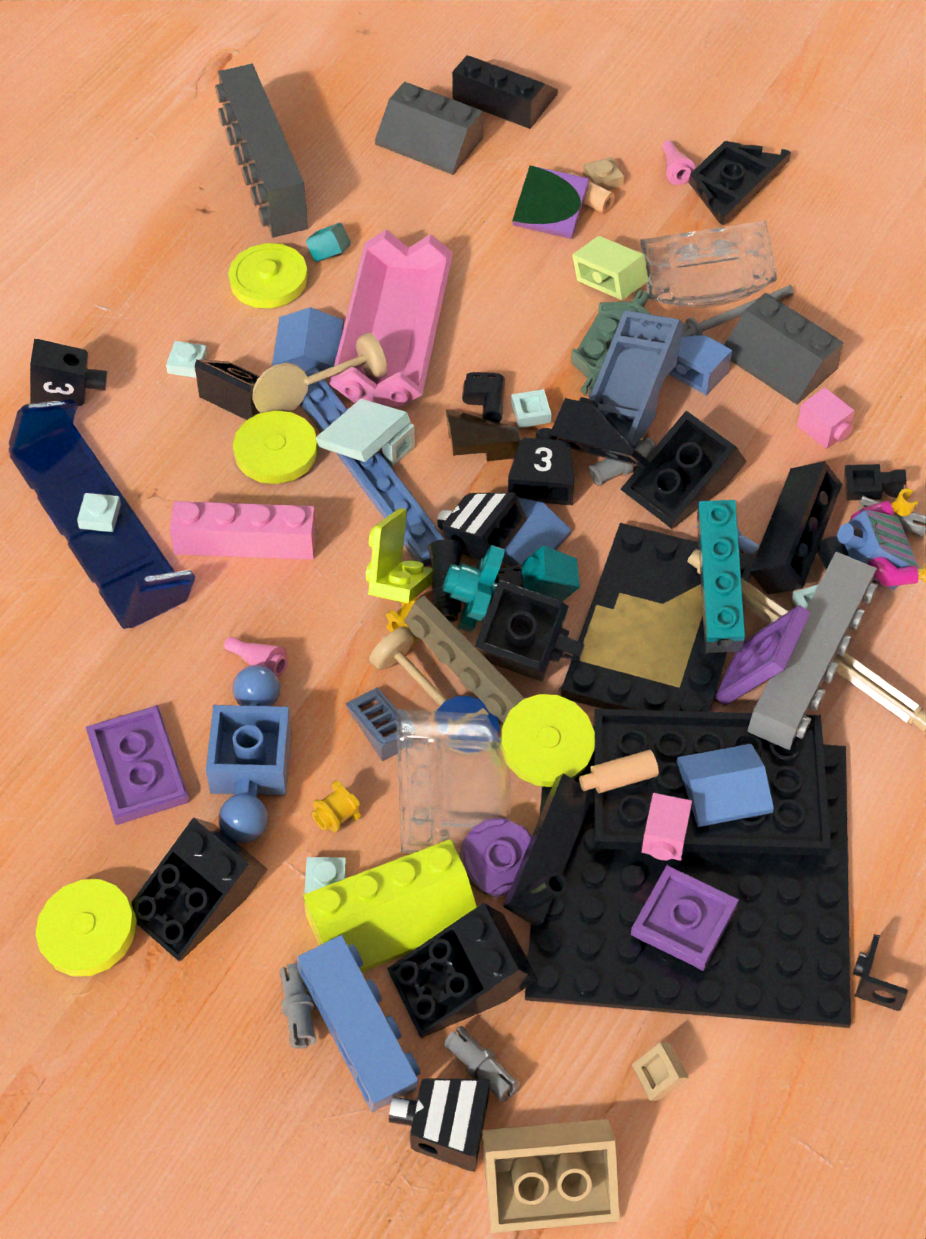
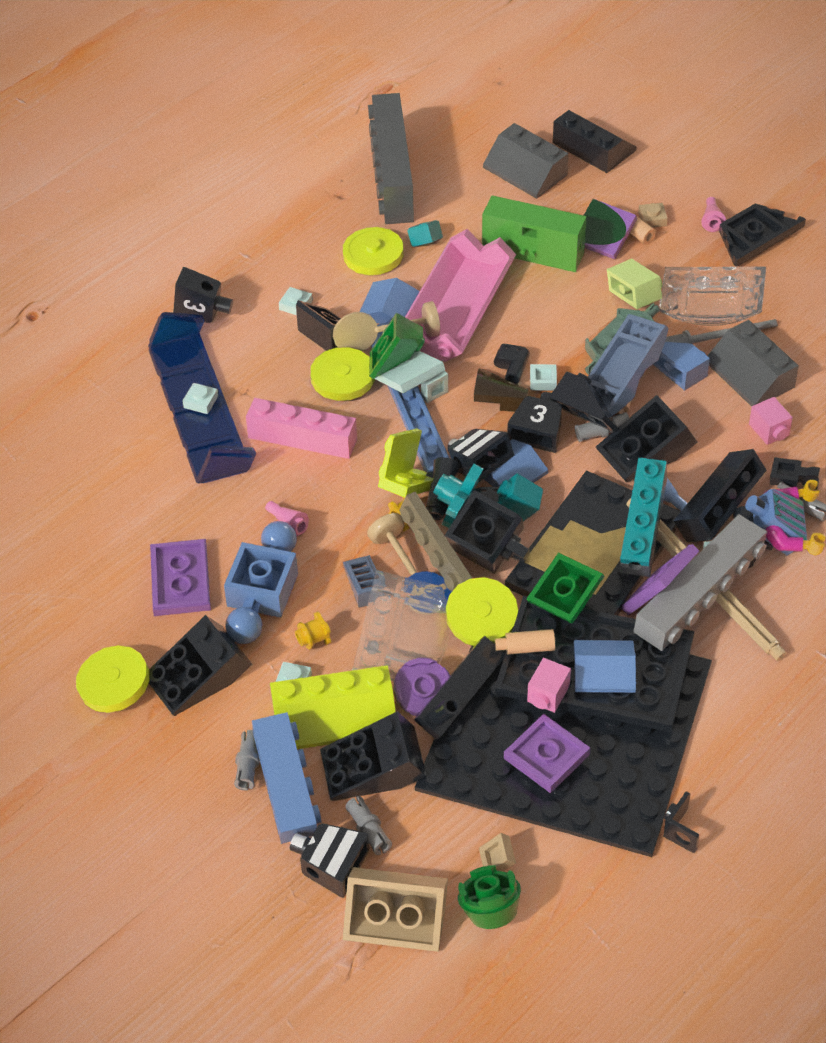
camera: 15 degrees right, 5 degrees down
(337, 399) = (395, 345): none -> green slope
(471, 220) = (536, 232): none -> bright green brick
(651, 691) = (565, 587): none -> green slope
(671, 1133) = (490, 897): none -> green cone

